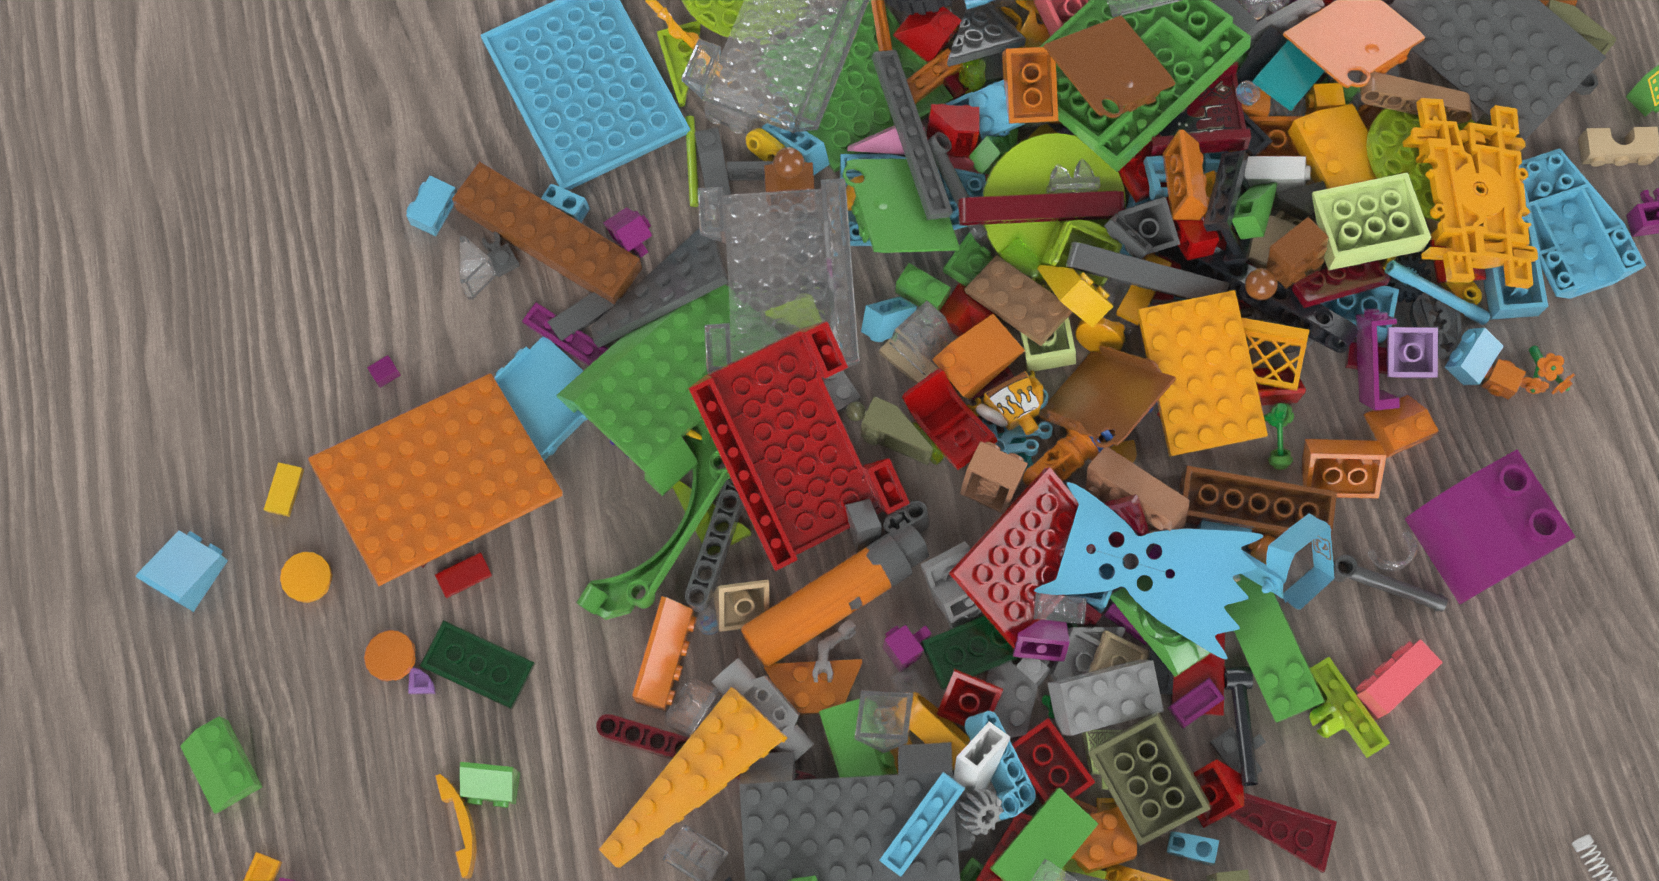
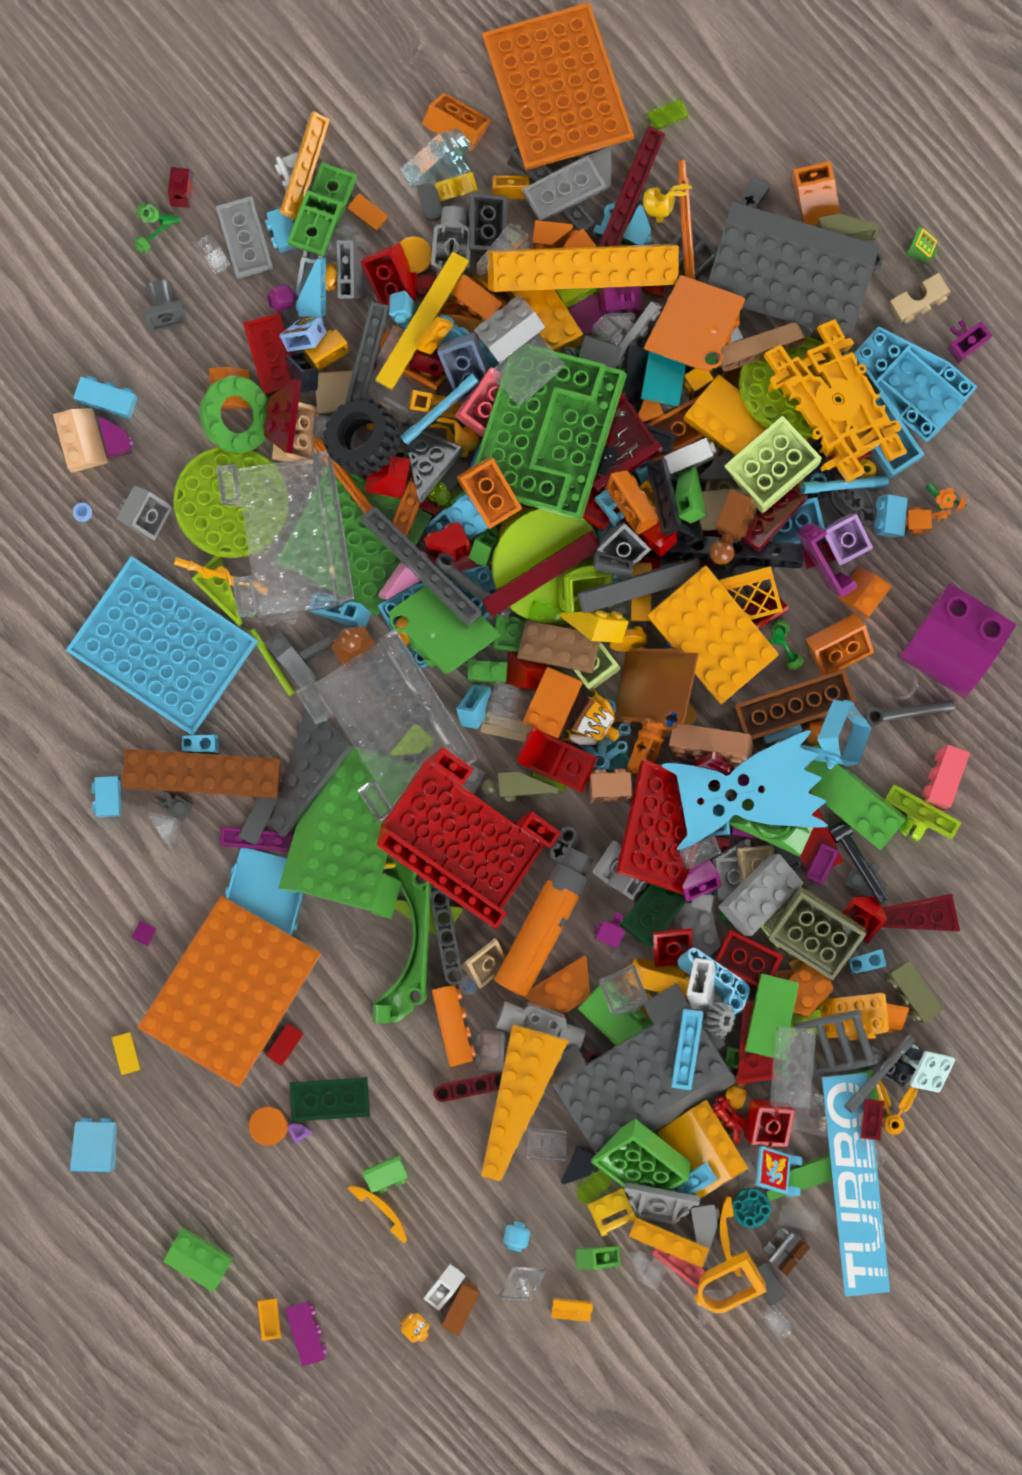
camera: 30 degrees left, 10 degrees up
(306, 577) = (178, 1104): light orange tile -> none
(629, 230) = (259, 741): magenta brick -> none
(765, 145) = (320, 624): yellow plate -> none
(844, 632) = (561, 973): light grey piece -> none
(863, 523) = (536, 862): dark grey slope -> none
(1082, 182) = (560, 538): clear tile -> none
(1110, 65) = (539, 452): dark orange piece -> none
(1247, 93) = (641, 409): clear tile -> none

